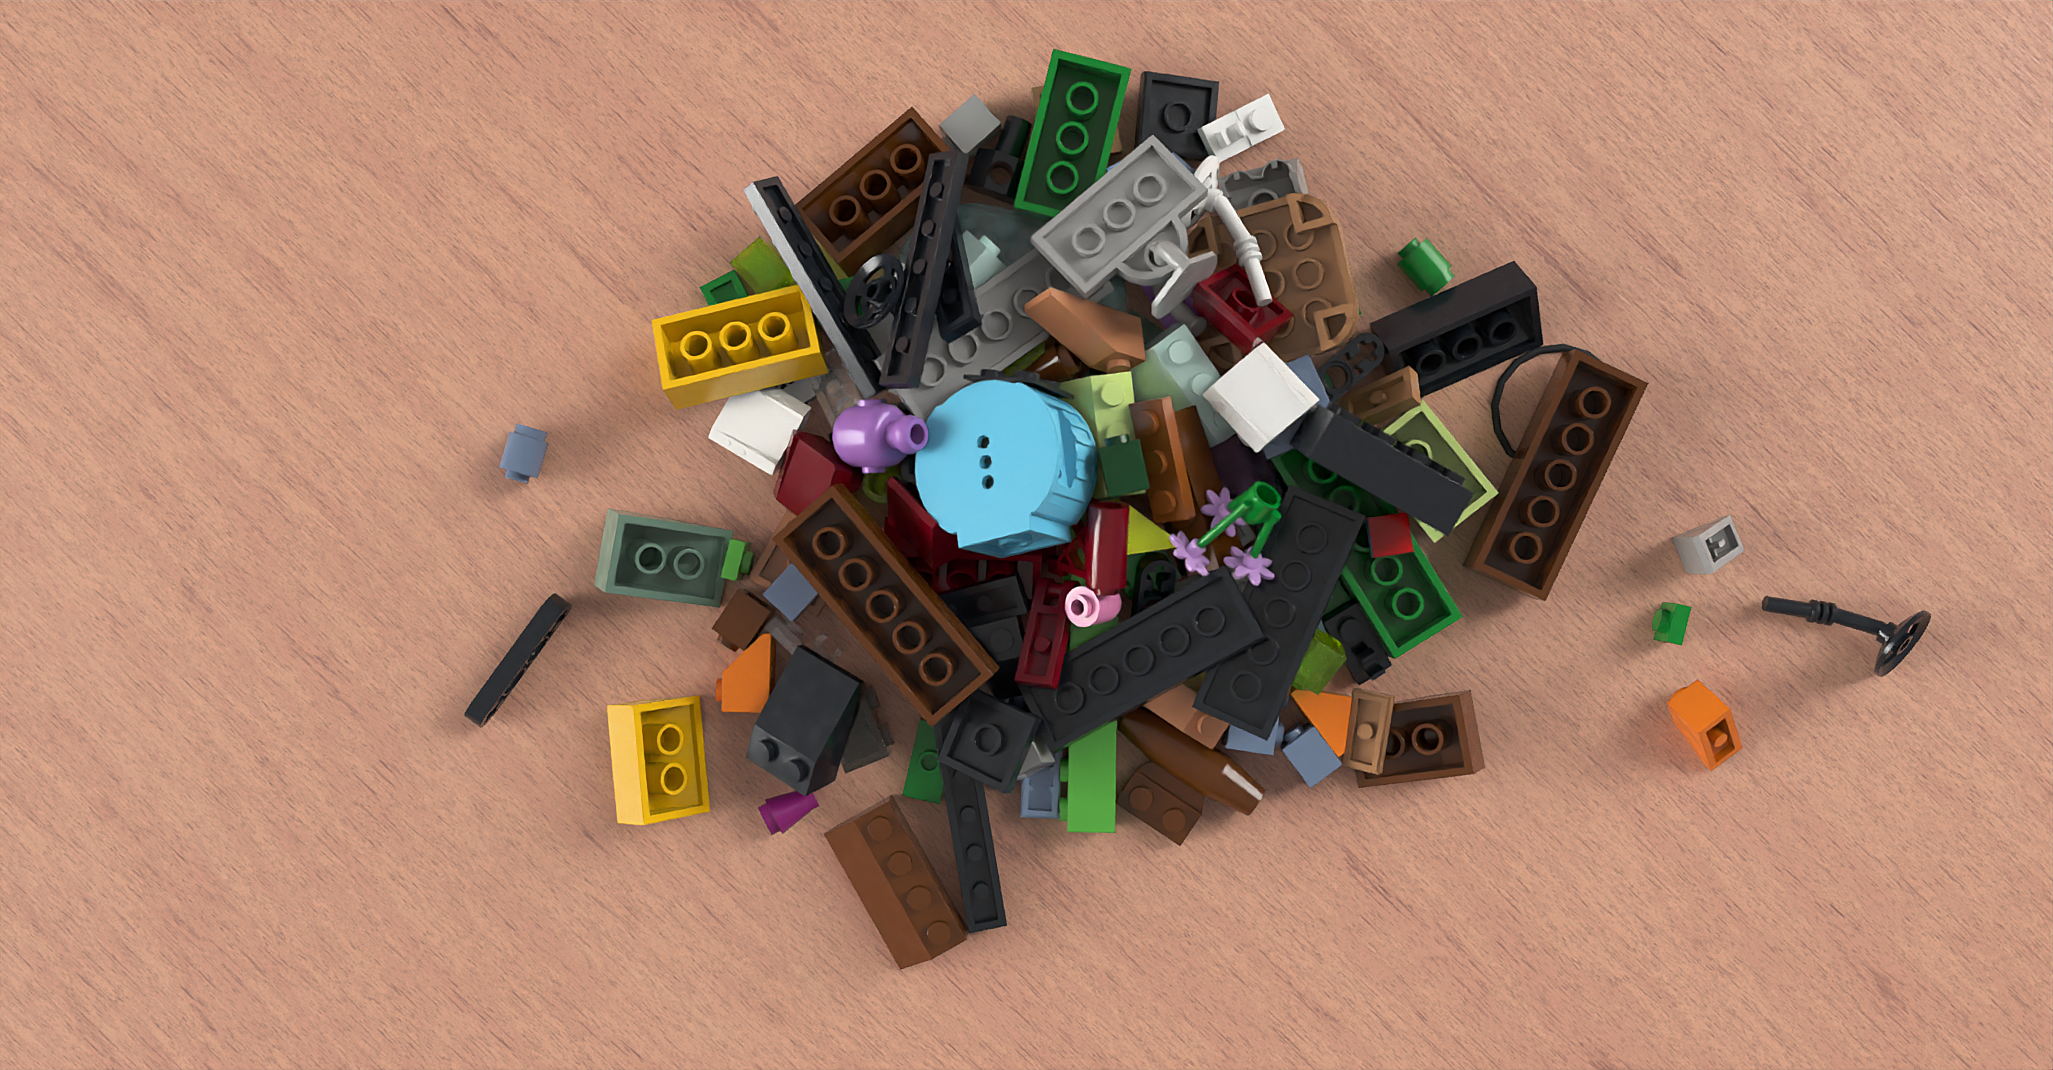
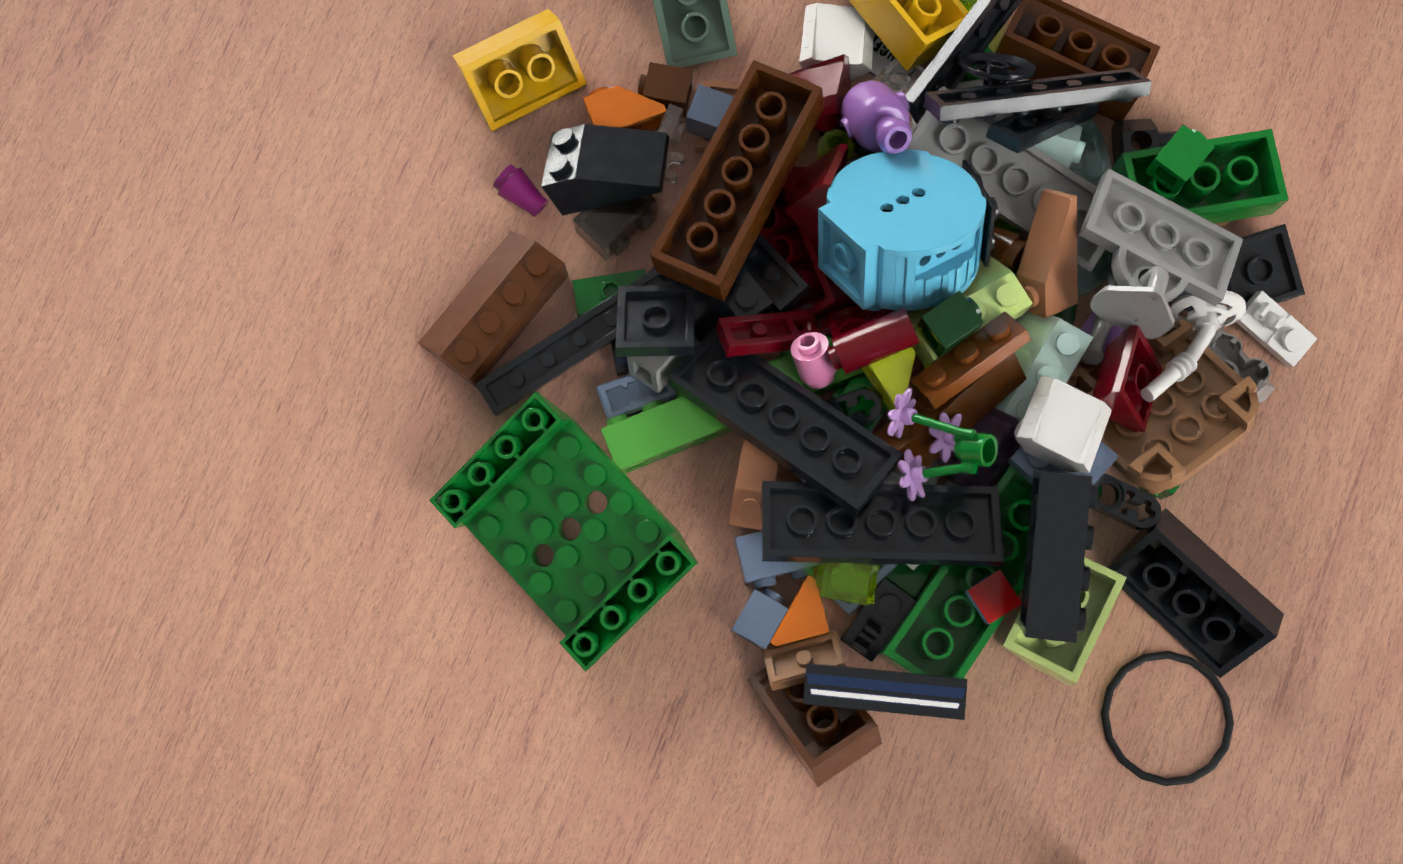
camera: 70 degrees right, 10 degrees down
(738, 560) = (715, 64): bright green plate -> none
(970, 127) = (1165, 104): light grey brick -> none
(1048, 158) = (1179, 158): none -> green brick
(1099, 932) = (523, 491): none -> green slope
(1181, 772) = (698, 507): reddish brown plate -> none
(1384, 397) = (1115, 550): medium nougat plate -> none
(1425, 266) = (1238, 537): green brick -> none
(1431, 674) = (885, 691): none -> tile
(1555, 474) = (1114, 734): reddish brown brick -> none

